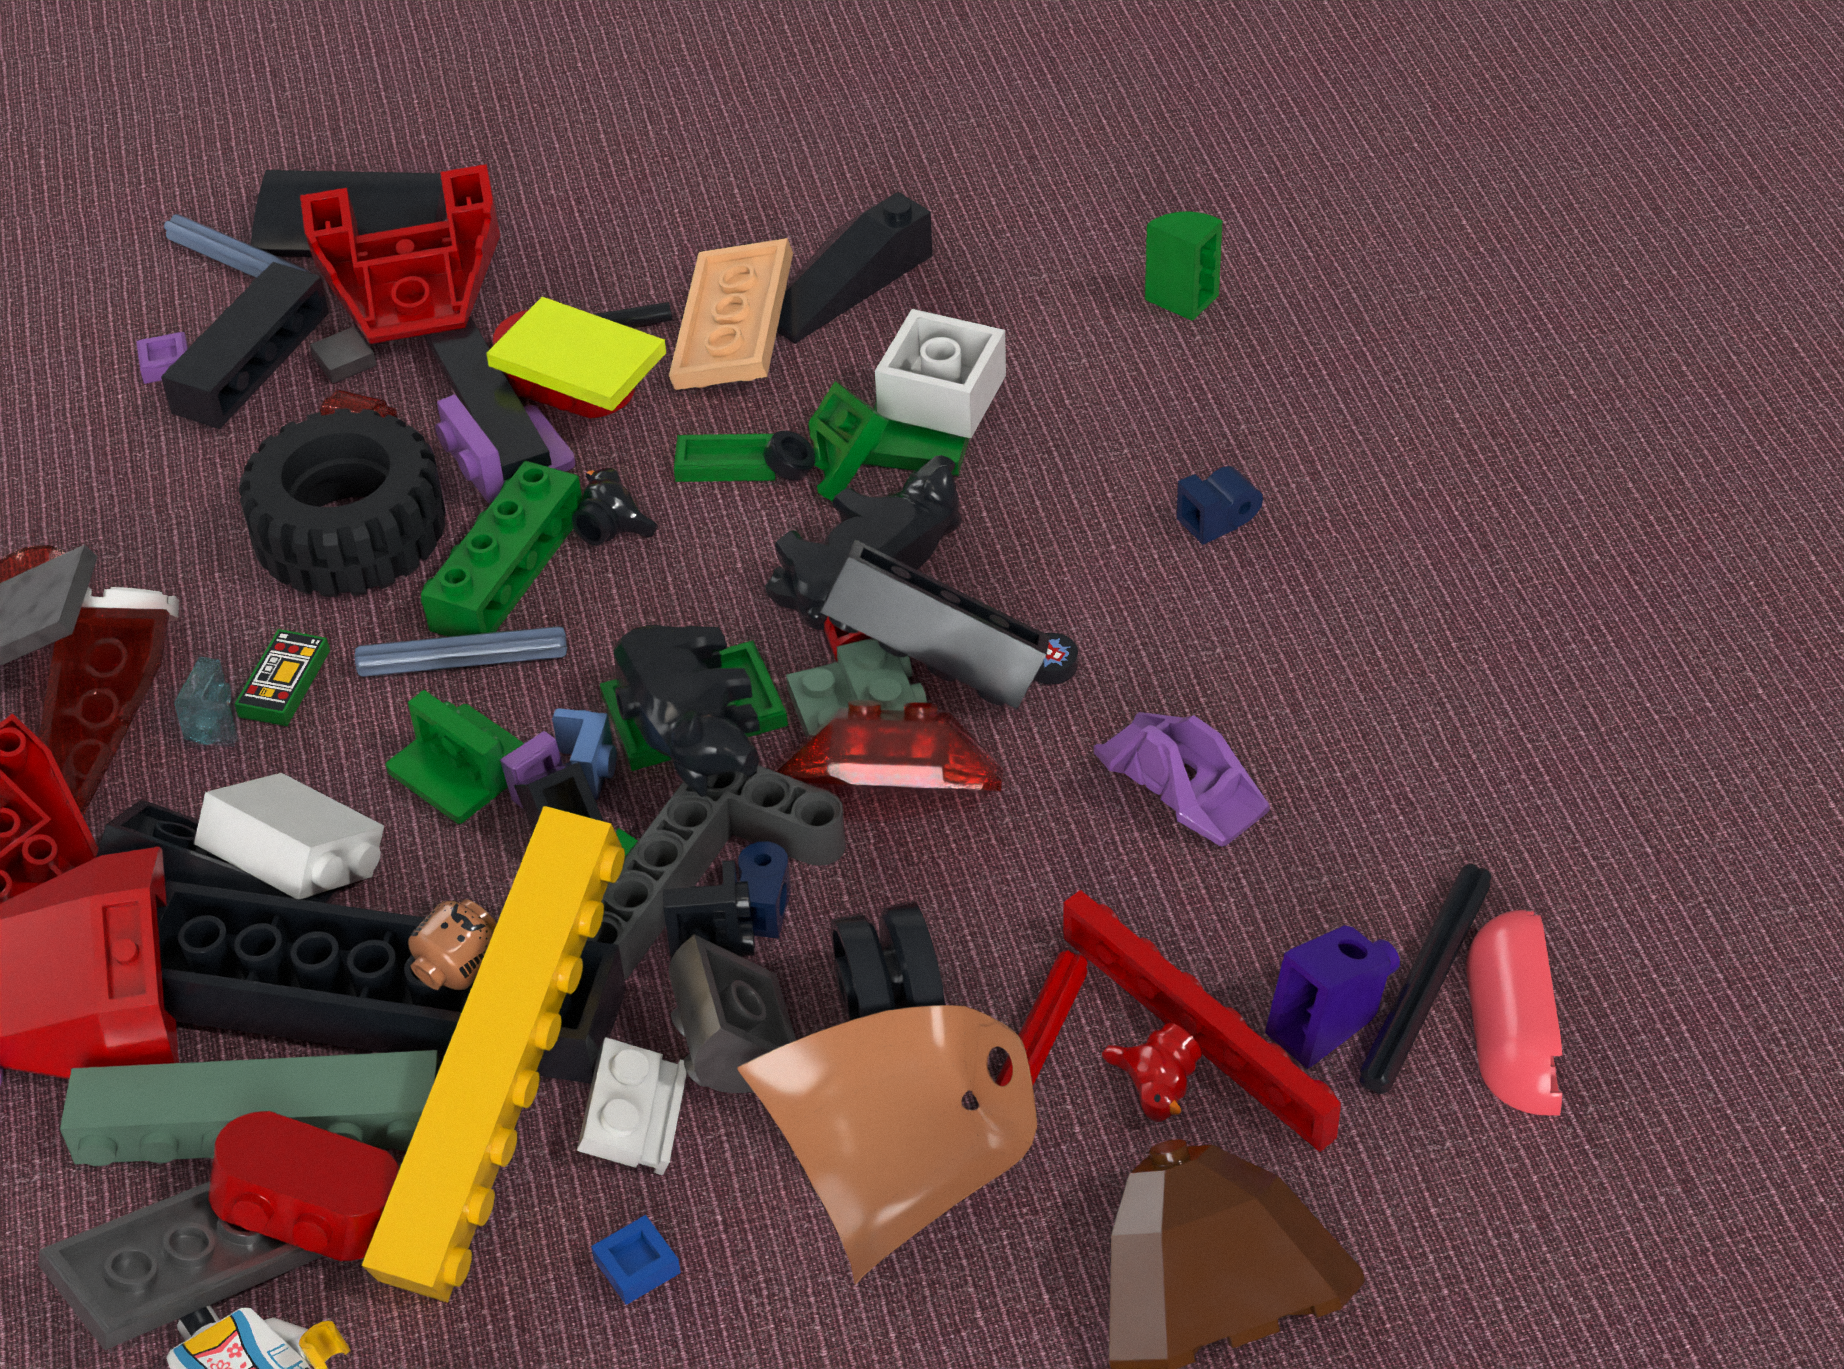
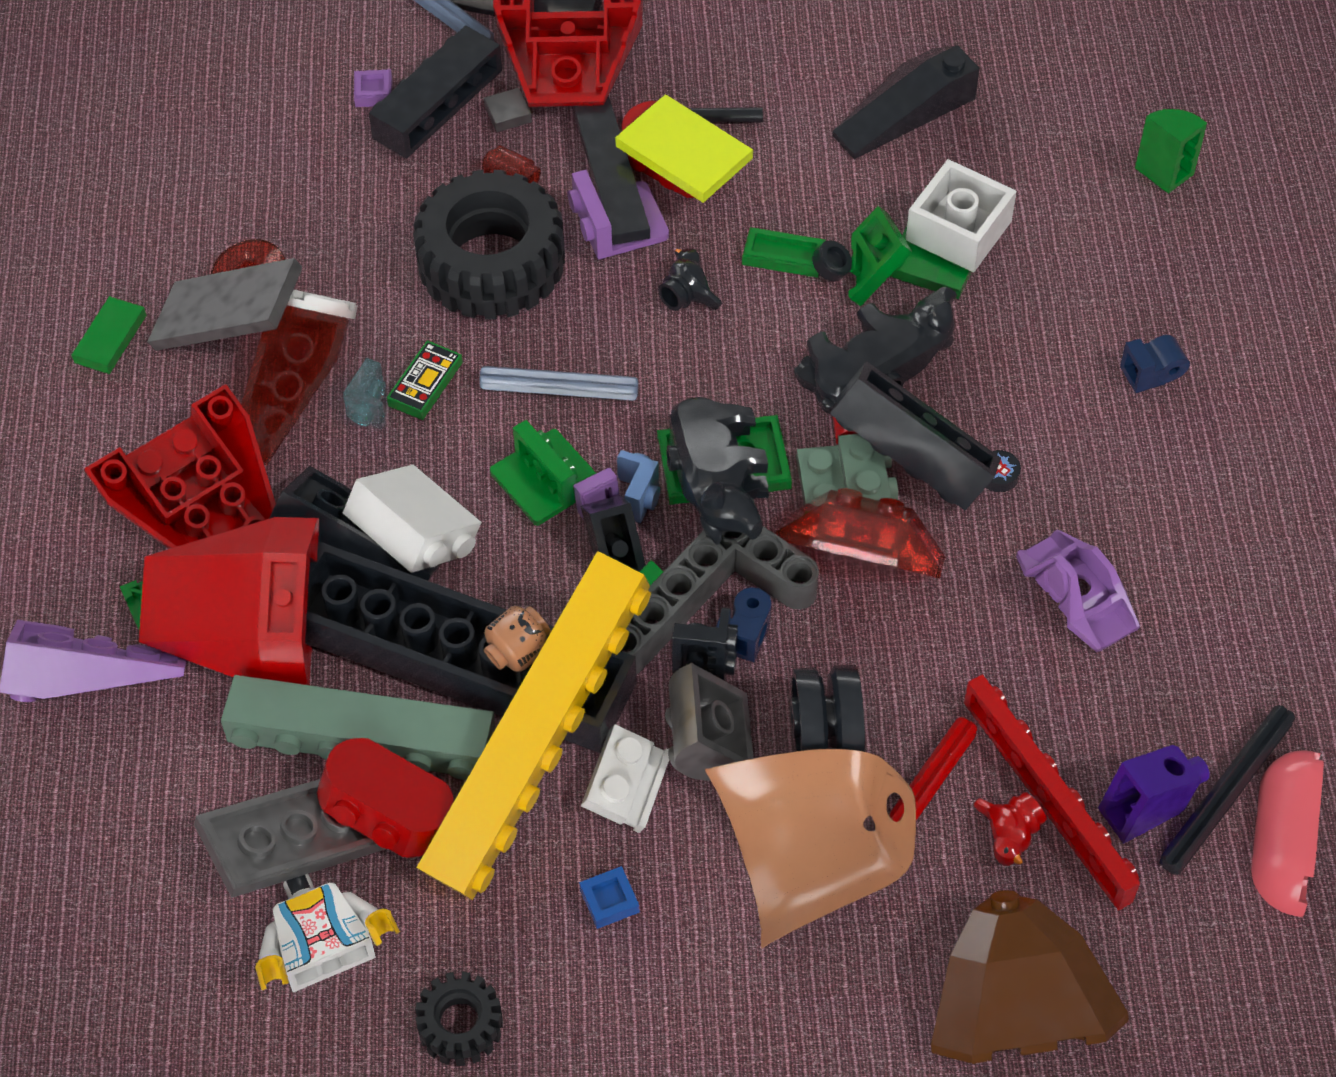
camera: 10 degrees right, 10 degrees up
(502, 552) = (602, 306): green brick -> none
(731, 315) = (809, 128): light nougat plate -> none

